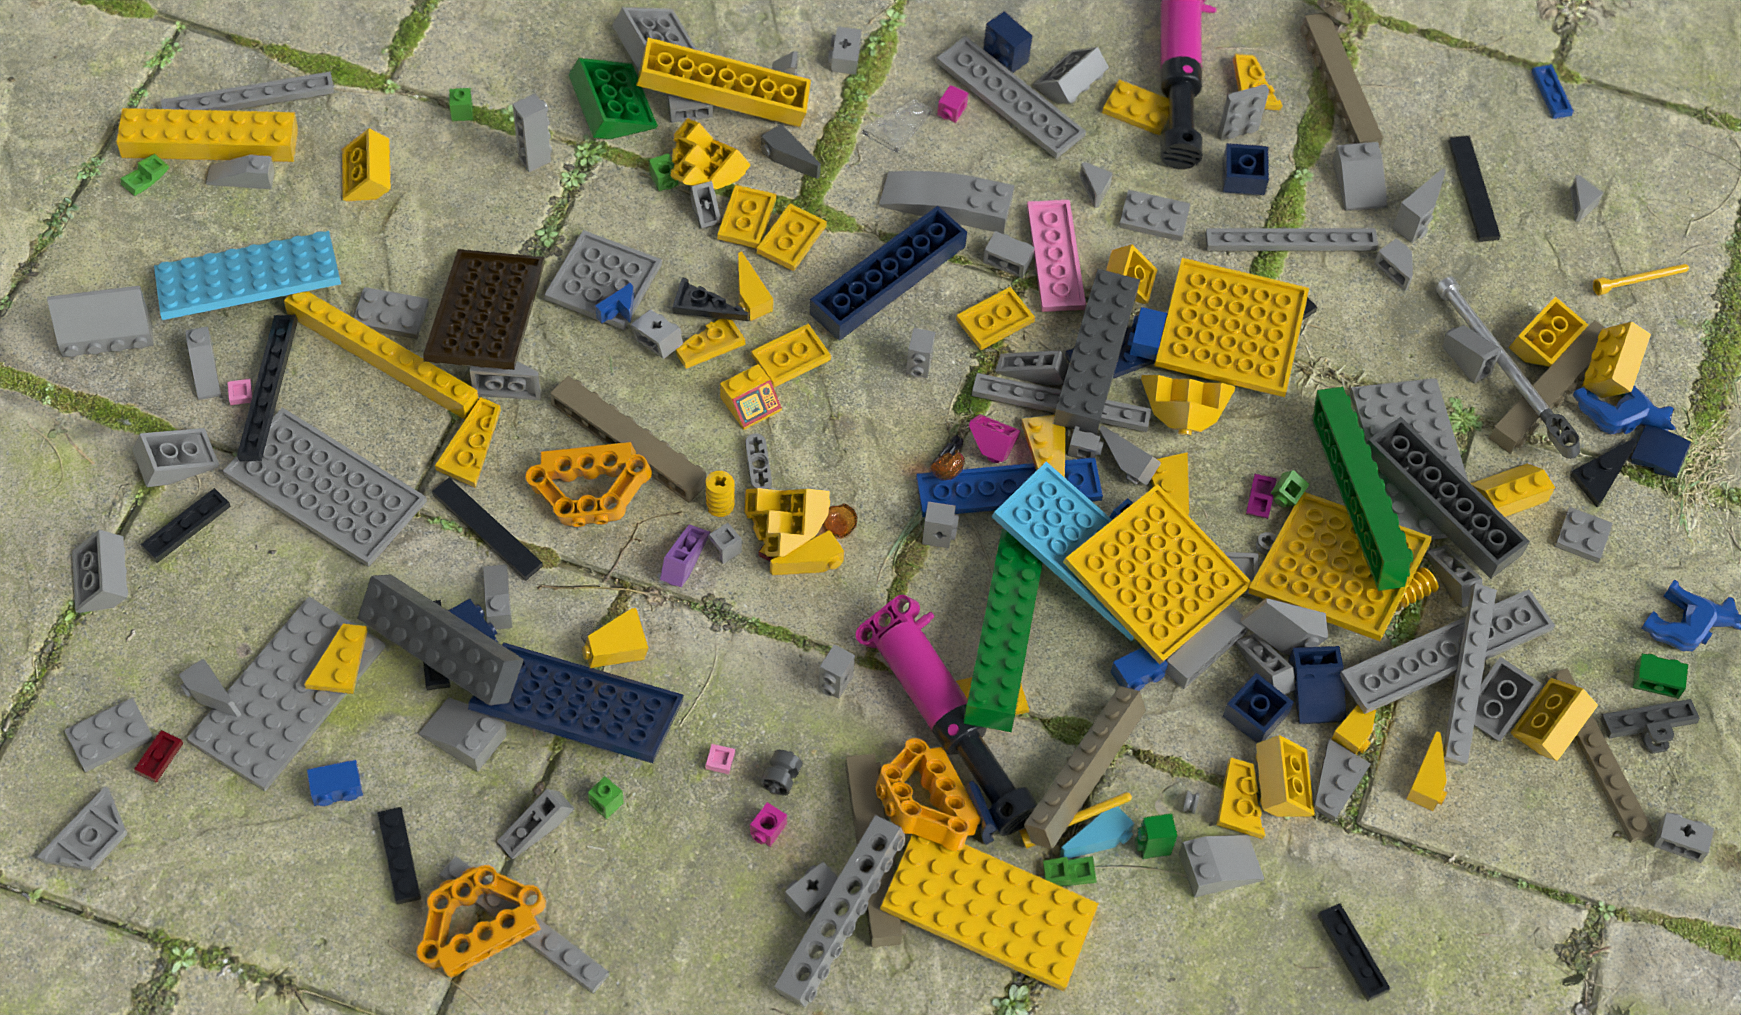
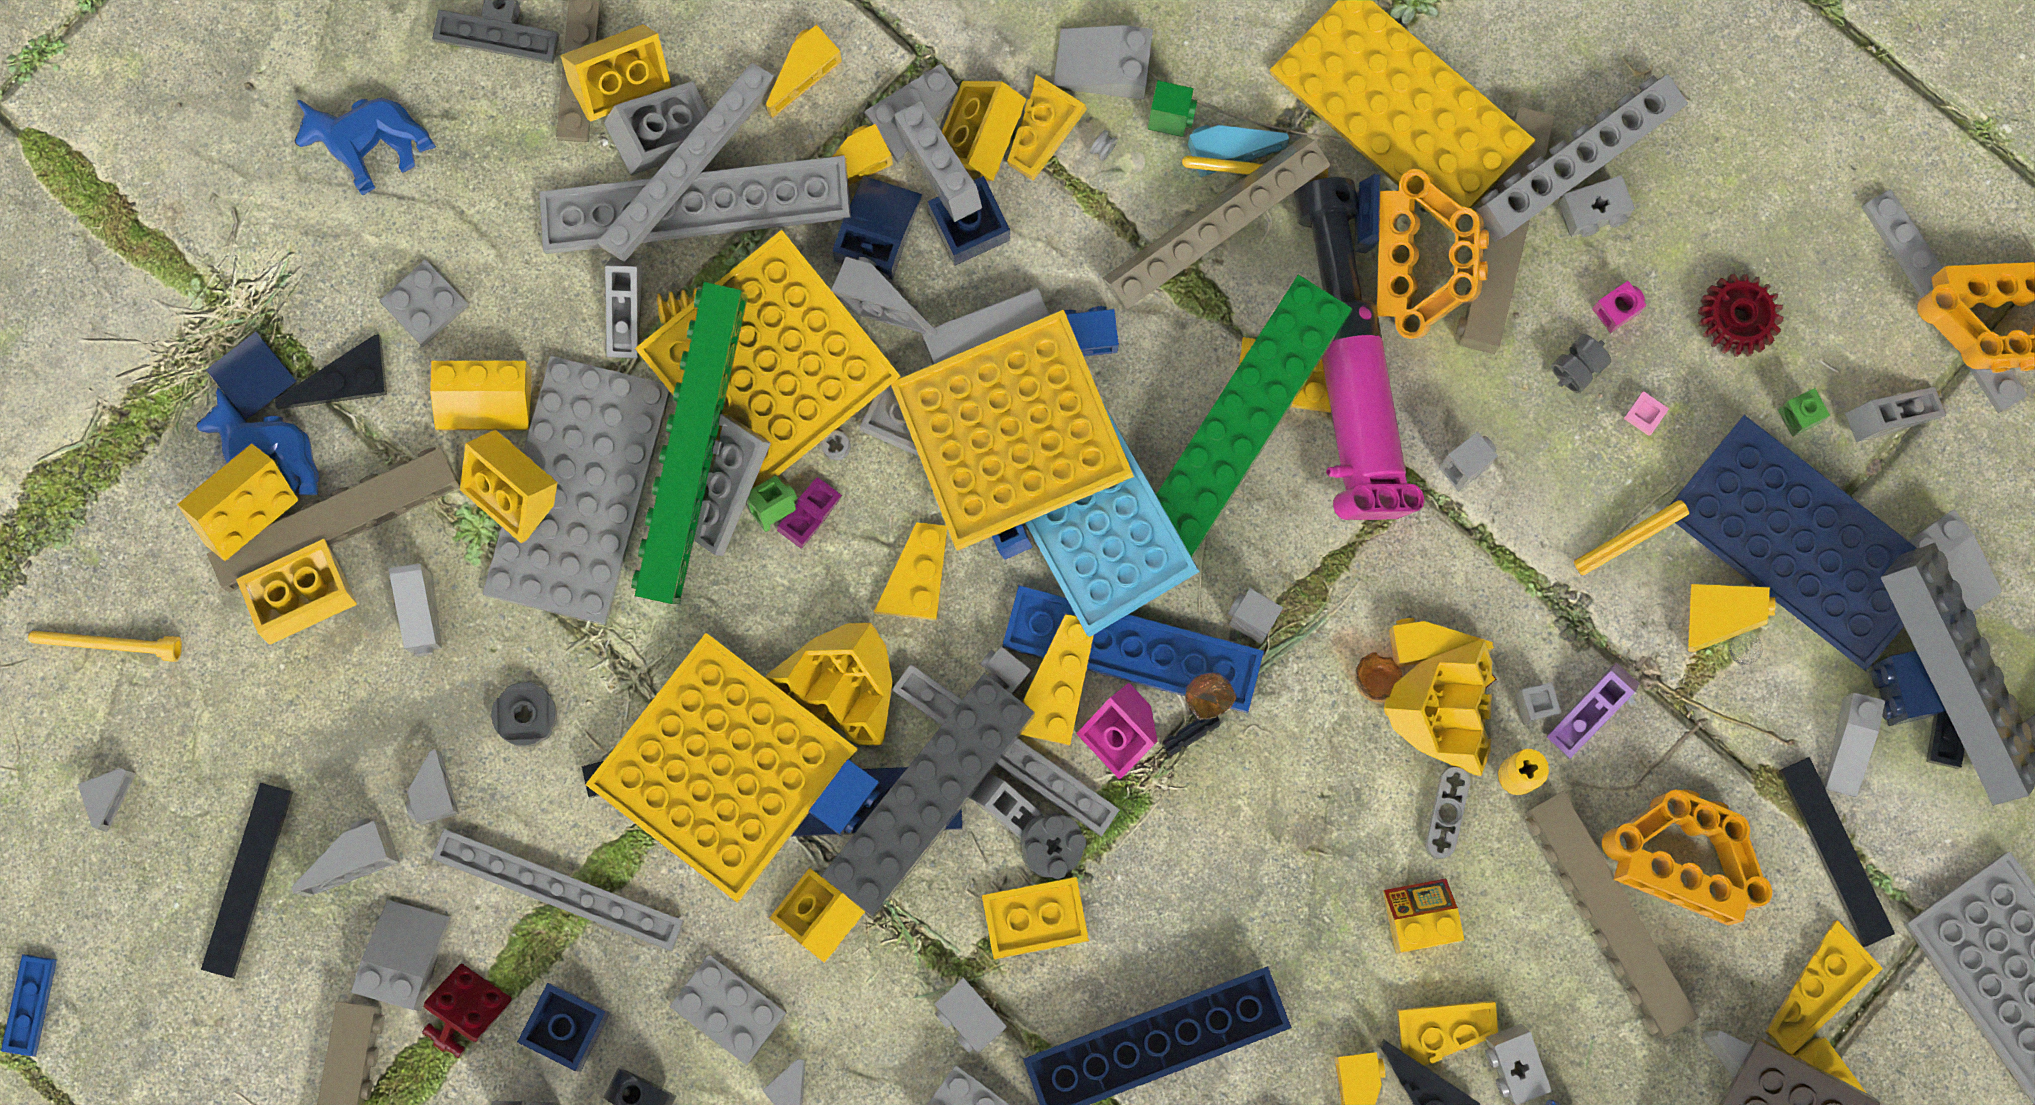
camera: 155 degrees left, 20 degrees up
(678, 866) = (1727, 328): none -> dark red gear
(700, 669) = (1631, 537): none -> yellow axle
(791, 355) = (1341, 965): yellow plate -> none
(920, 353) = (1170, 886): light grey brick -> none
(1000, 348) = (1069, 849): none -> dark grey plate
(1056, 255) = (903, 992): bright pink plate -> none
(1070, 872) = (1278, 118): bright green slope -> none
(1130, 458) = (956, 626): light grey slope -> none
(1267, 663) = (925, 275): light grey slope -> none
(1301, 726) = (938, 161): none -> light grey brick
(1308, 164) = (465, 1005): none -> dark red plate
(1322, 486) = (735, 470): none -> light grey wing
(1368, 333) = (511, 702): none -> dark grey plate
(1447, 498) = (583, 398): dark grey brick -> none
(1449, 290) = (386, 717): flat silver piece -> none
(1461, 437) = (506, 484): none -> yellow slope
(1660, 675) = (449, 81): green brick -> none

